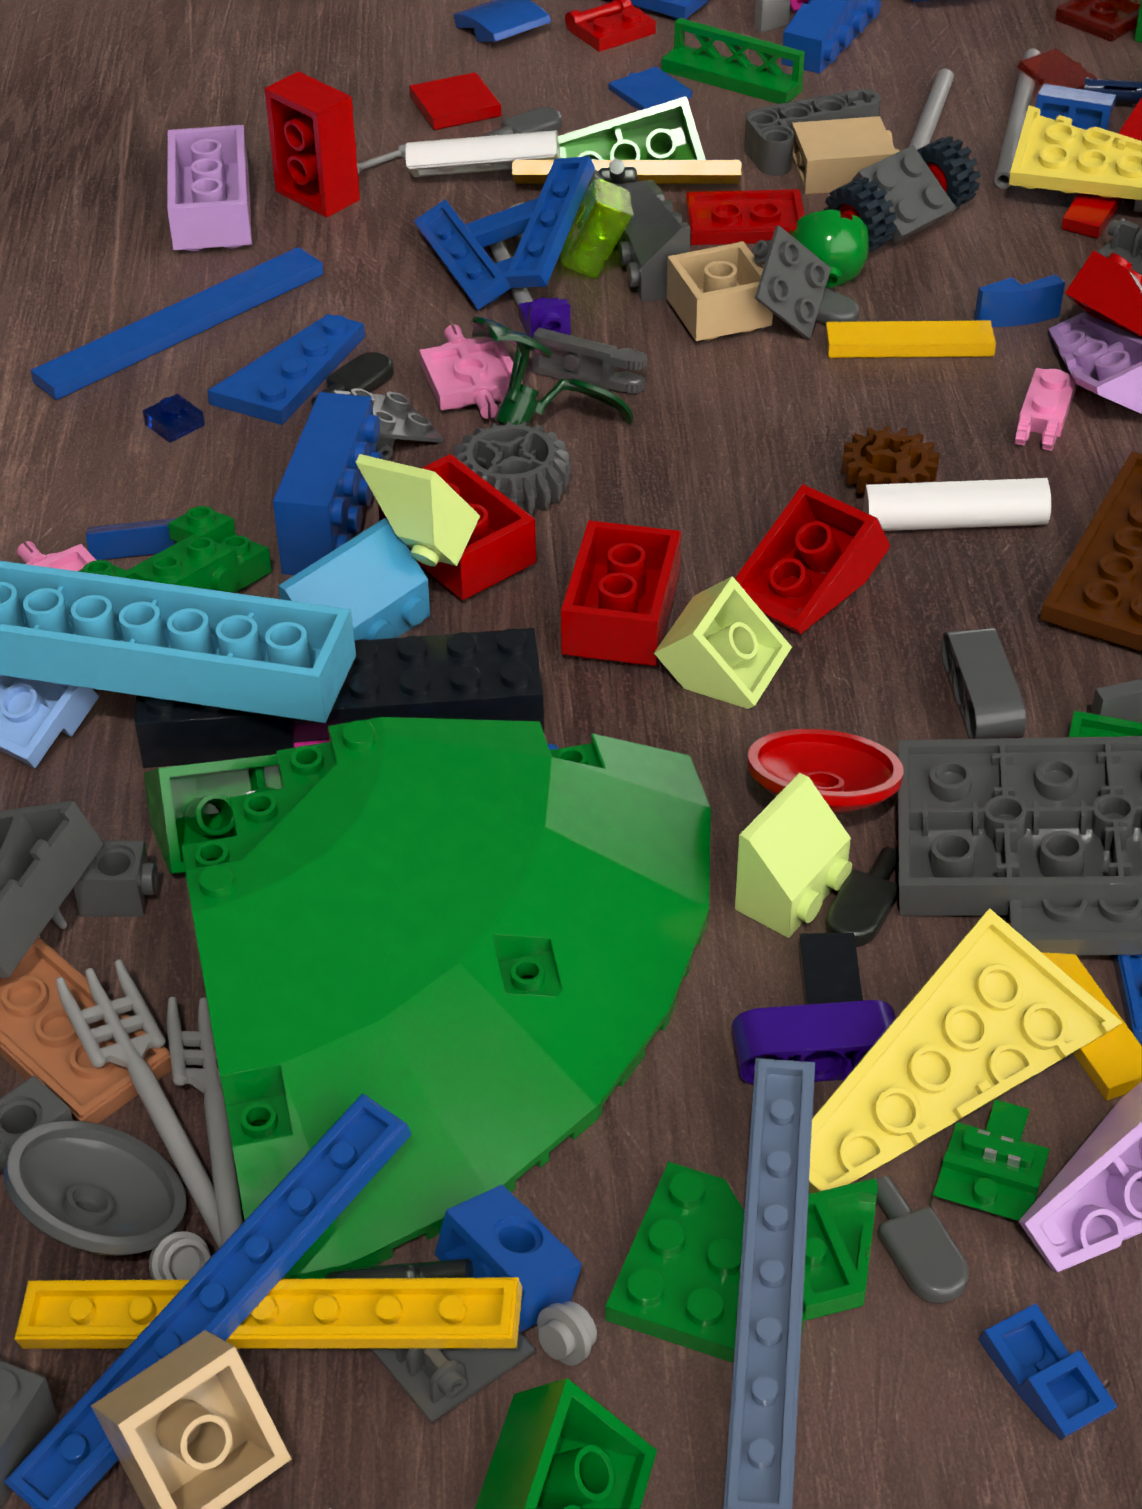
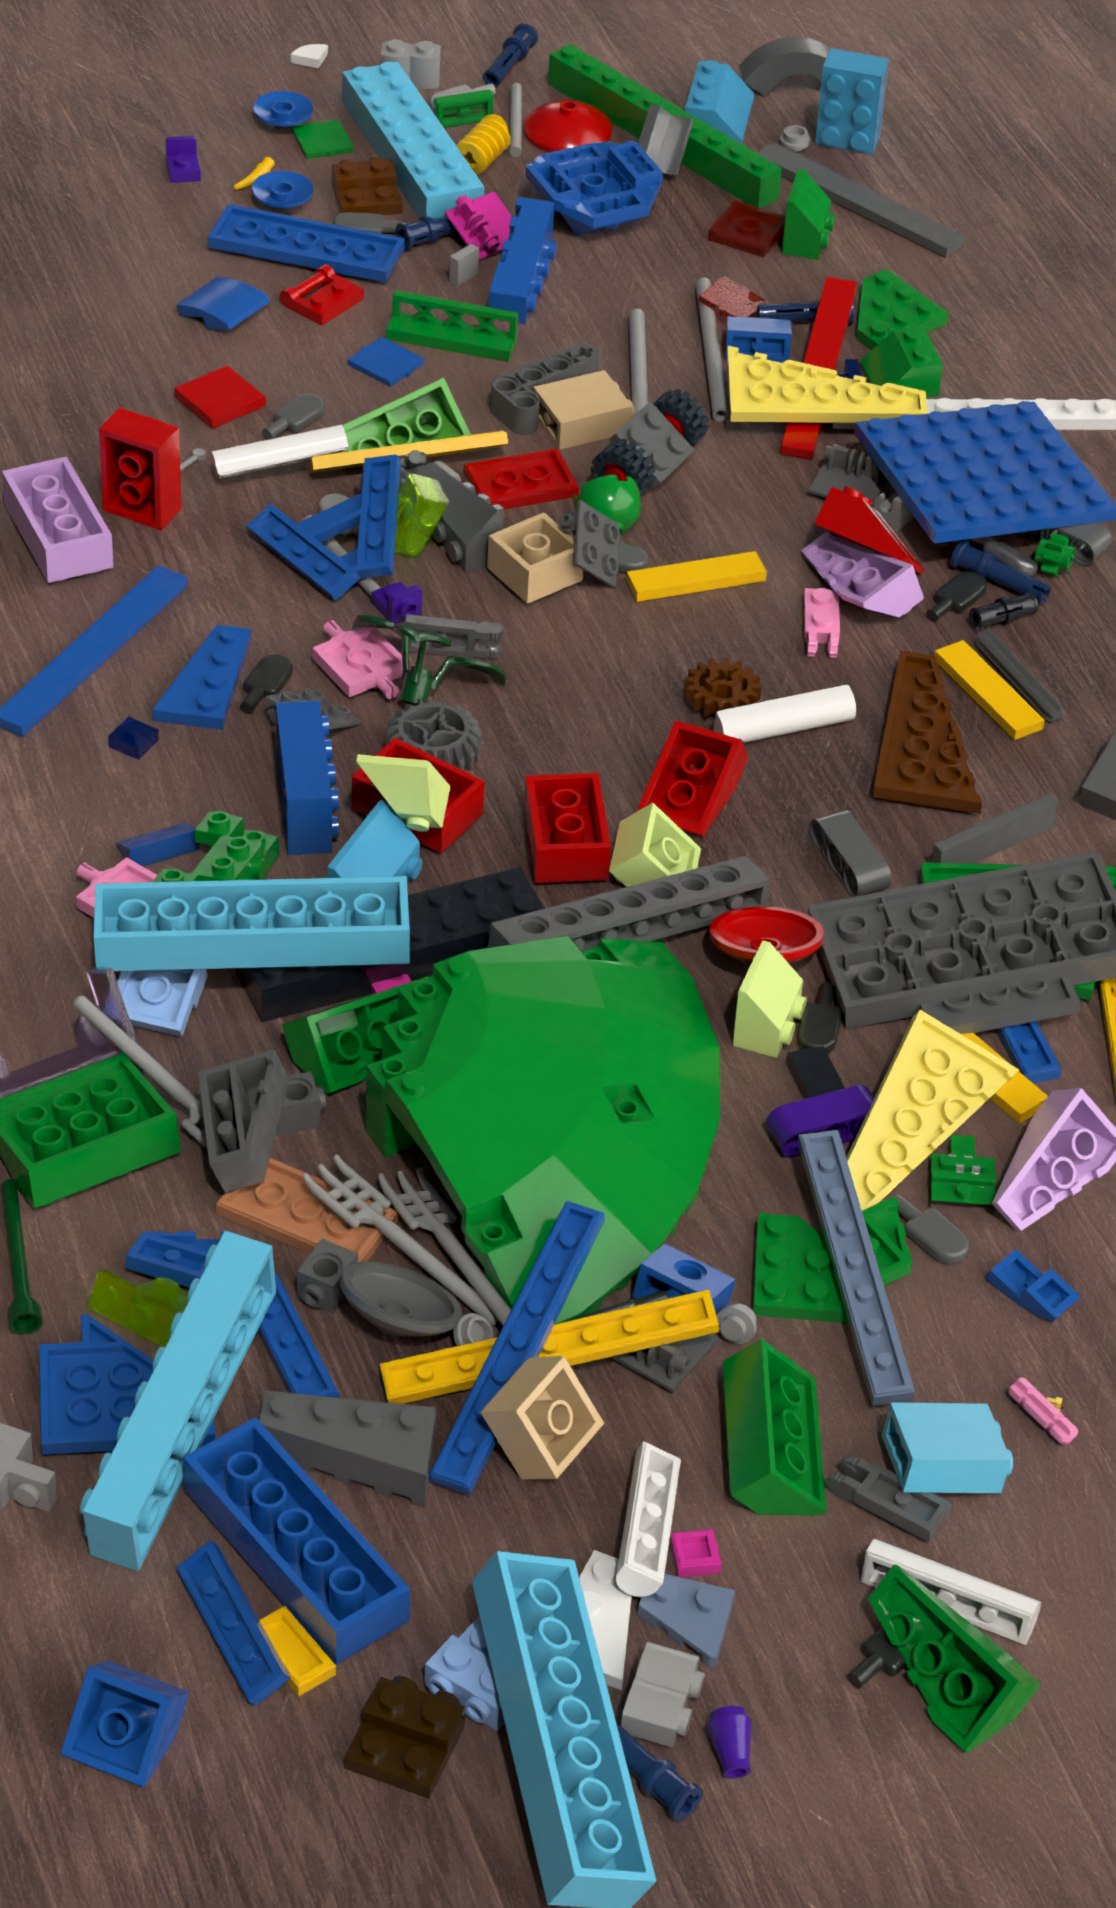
camera: 20 degrees left, 0 degrees up
(669, 708) = (644, 909): none -> dark grey brick
(1014, 304) = (770, 533): blue slope -> none

